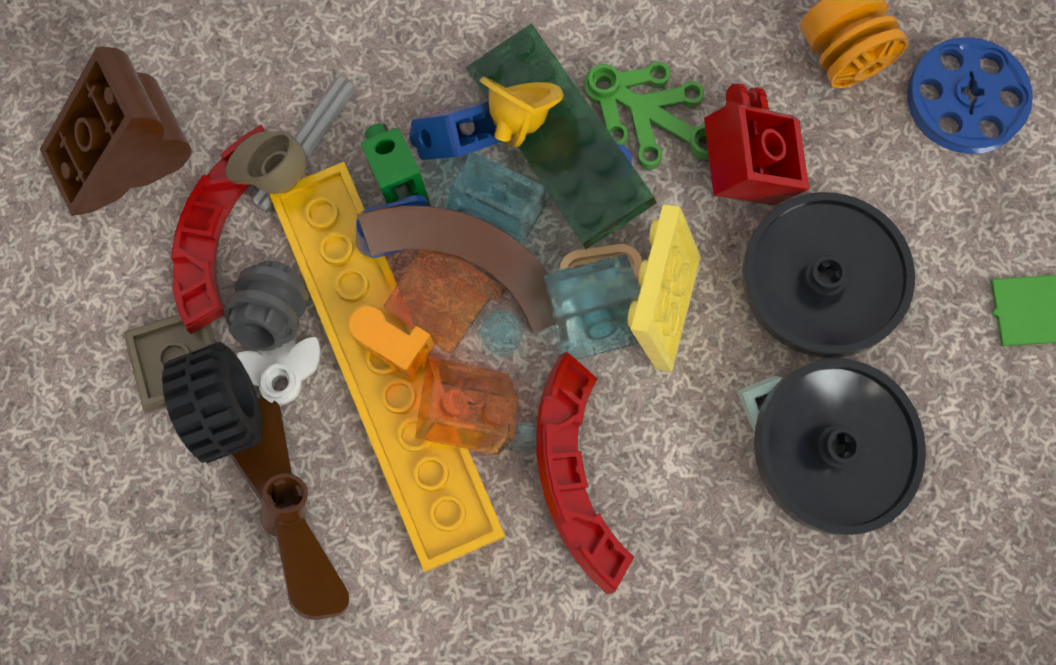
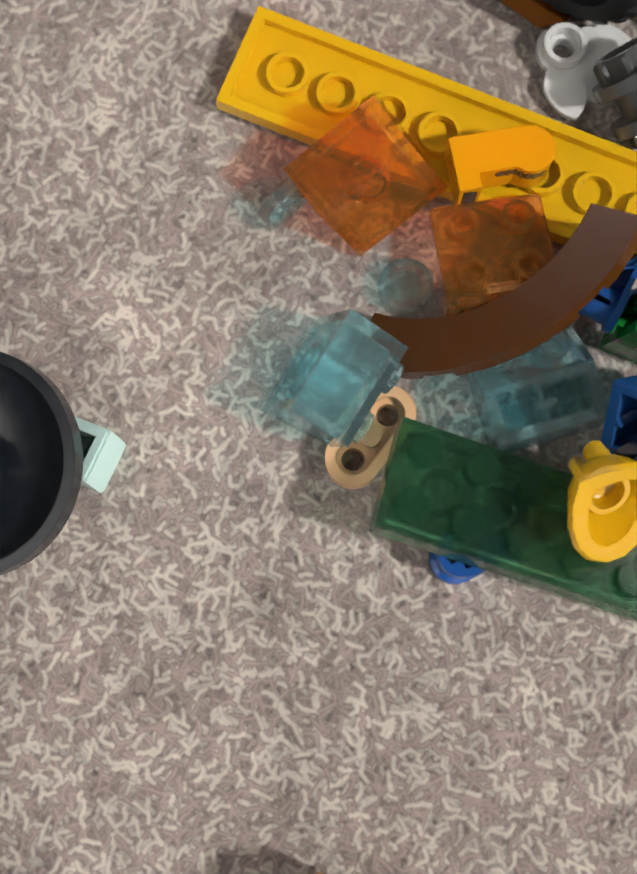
camera: 135 degrees right, 5 degrees up
(564, 475) = (216, 200): red tile -> none
(646, 107) = (492, 662): bright green plant -> none
(665, 288) = (274, 444): light yellow plate -> none
(754, 150) = (329, 705): red hinge -> none
(828, 275) = (130, 638): black dish -> none

